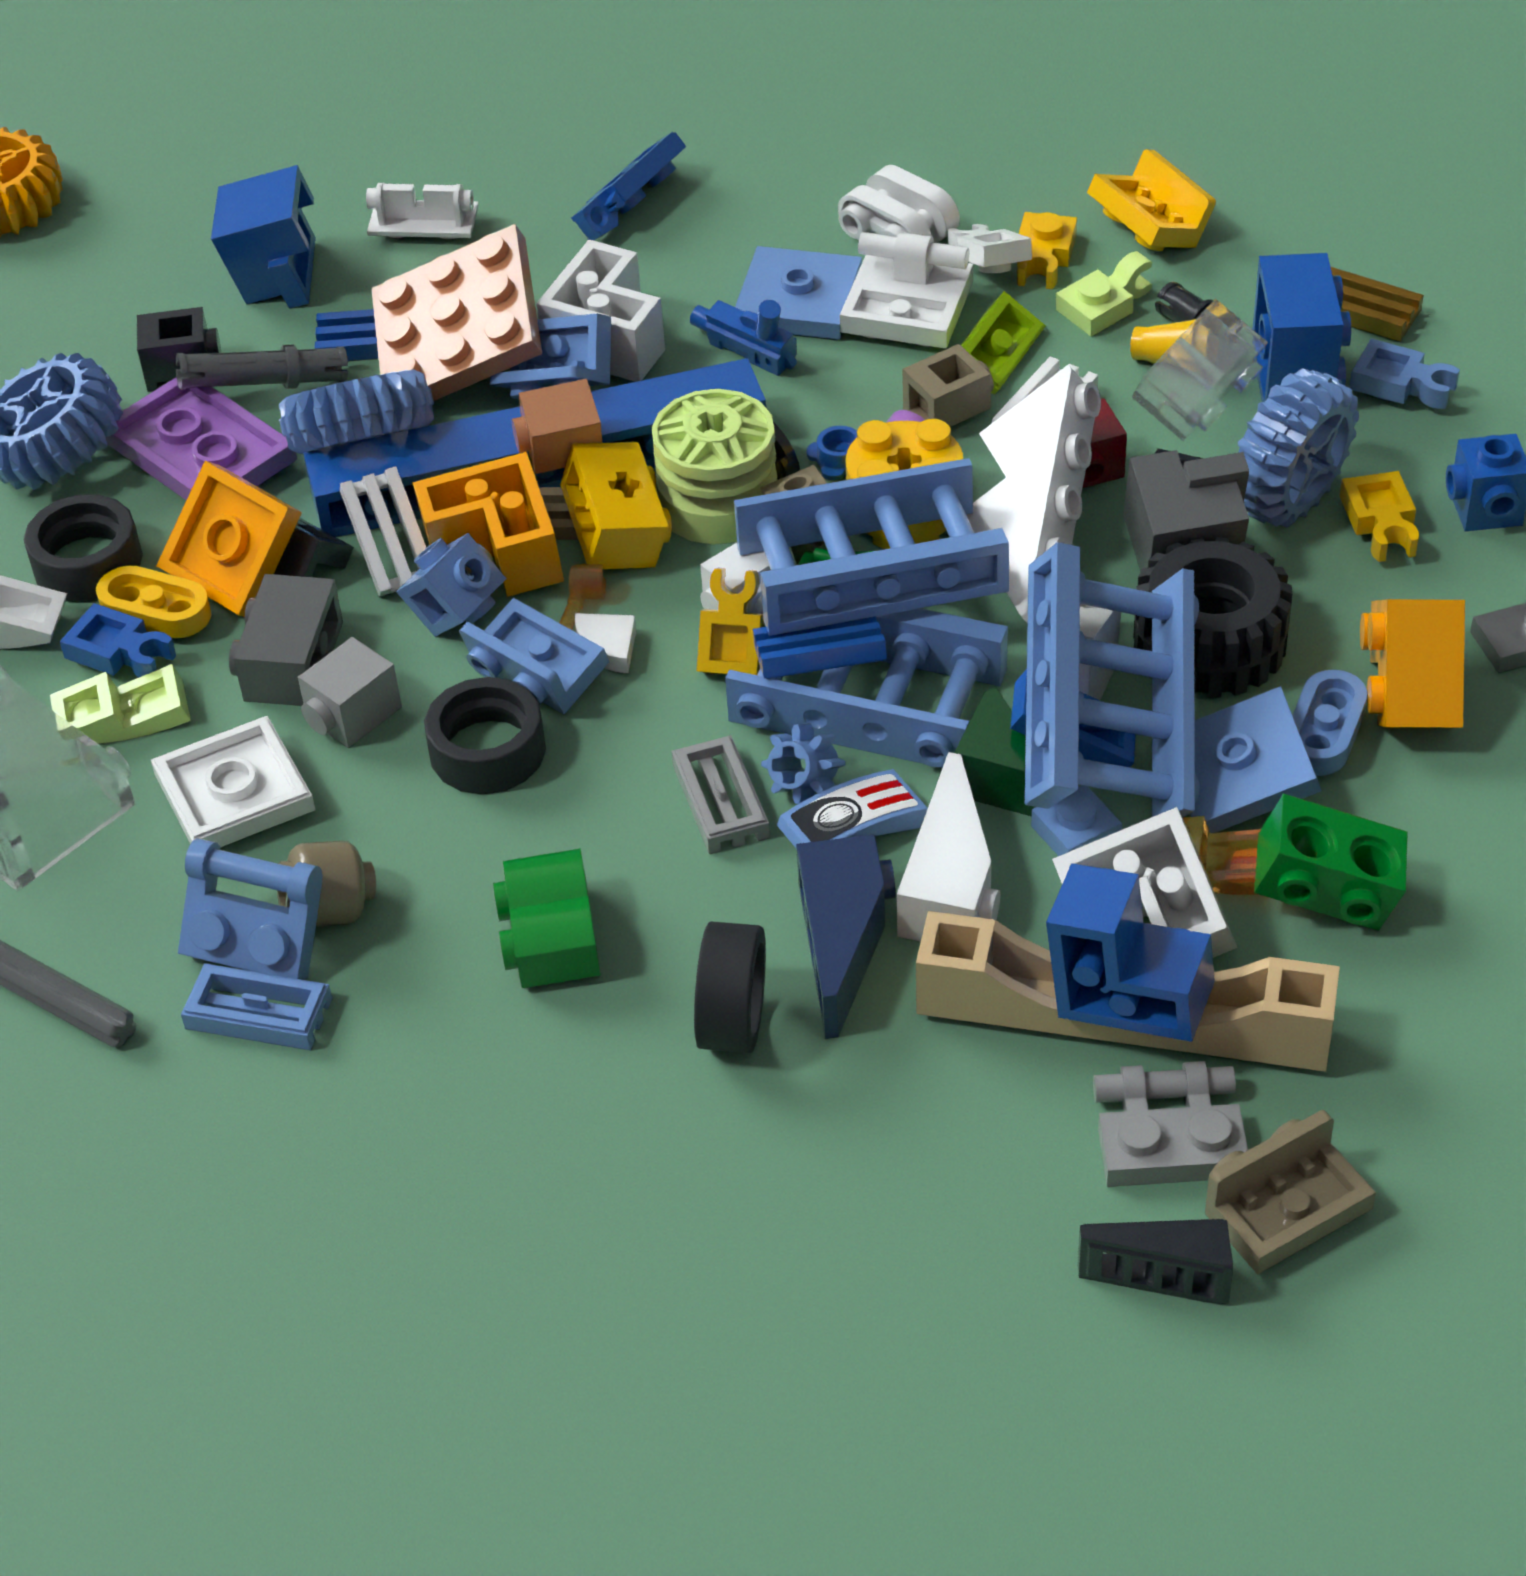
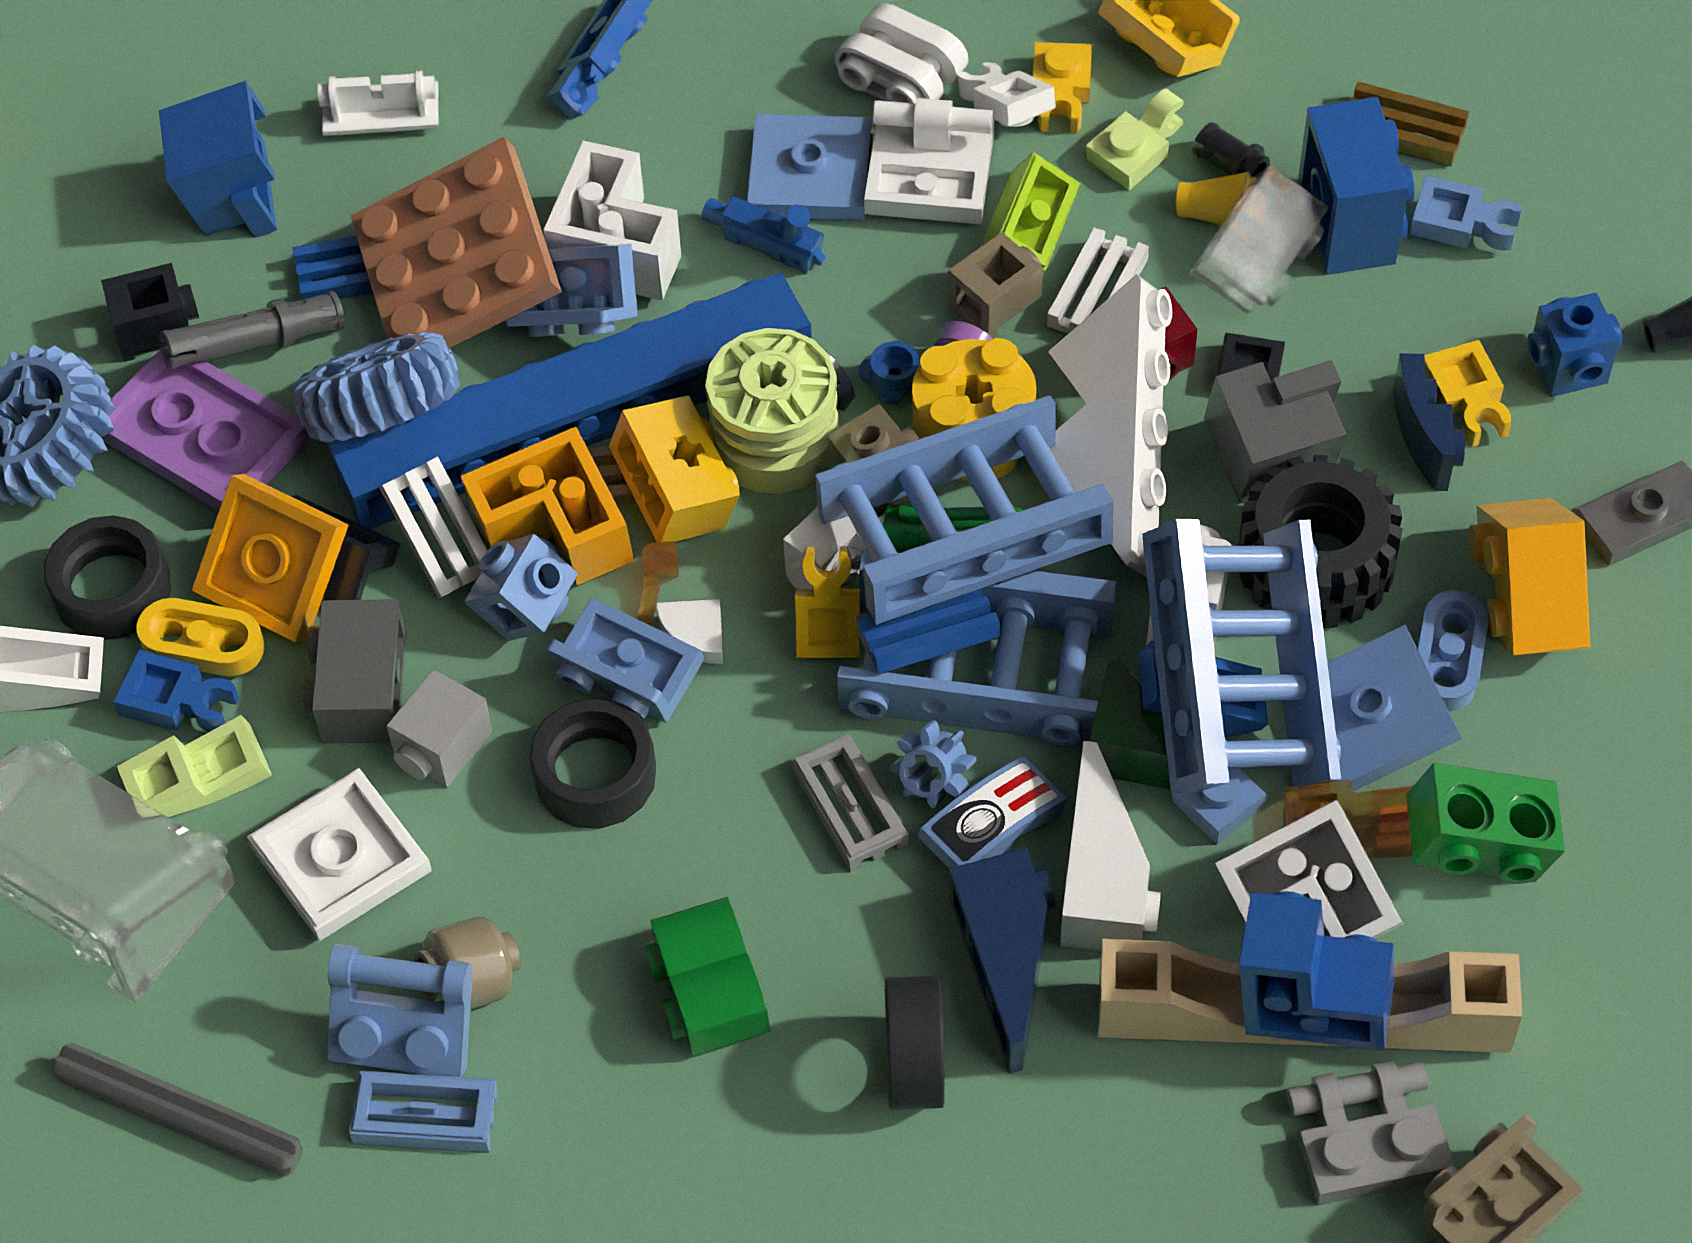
camera: 10 degrees left, 10 degrees up
(555, 420) = (601, 386): nougat brick -> none
(1297, 445) = (1374, 325): medium blue gear -> none
(1336, 534) = (1425, 424): none -> dark blue slope

